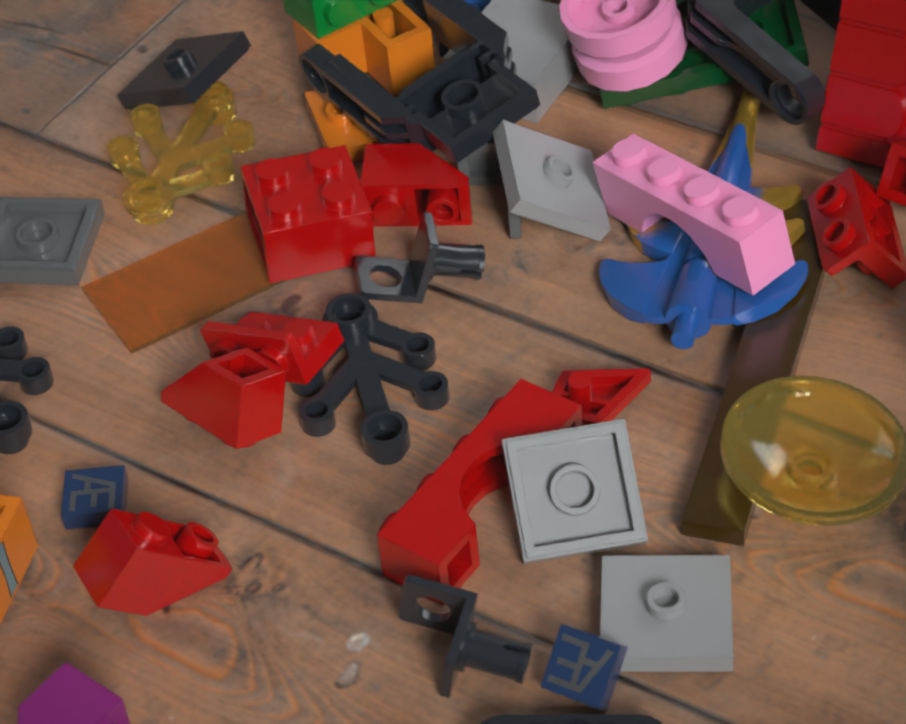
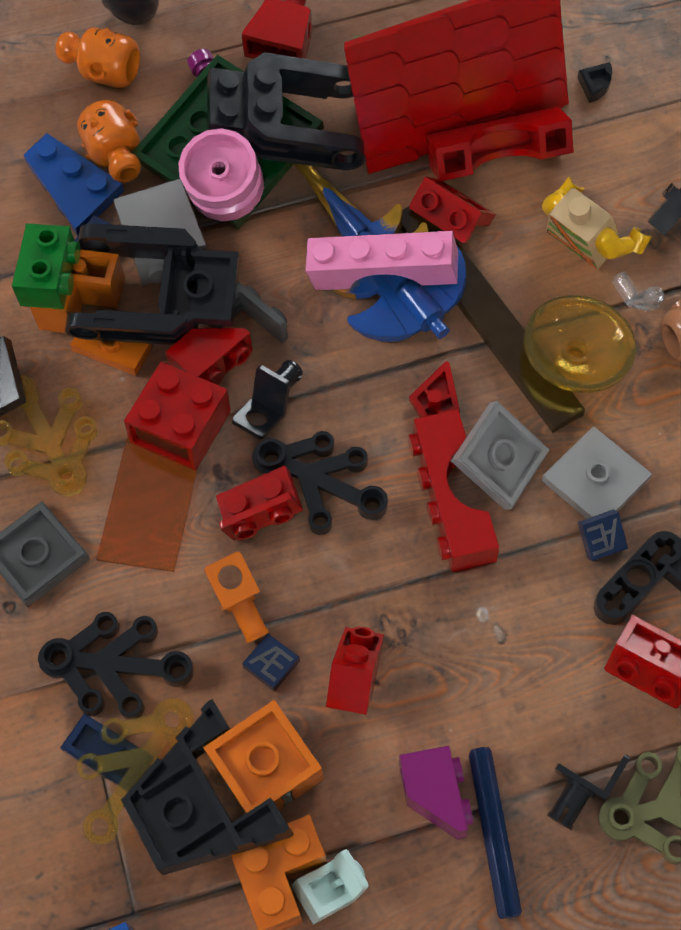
camera: 50 degrees left, 20 degrees up
(132, 398) = (238, 599): none -> orange bracket
(232, 397) = (279, 549): red slope -> none
(469, 645) = (542, 572): black bracket -> none
(550, 181) = (283, 296): light grey plate -> none

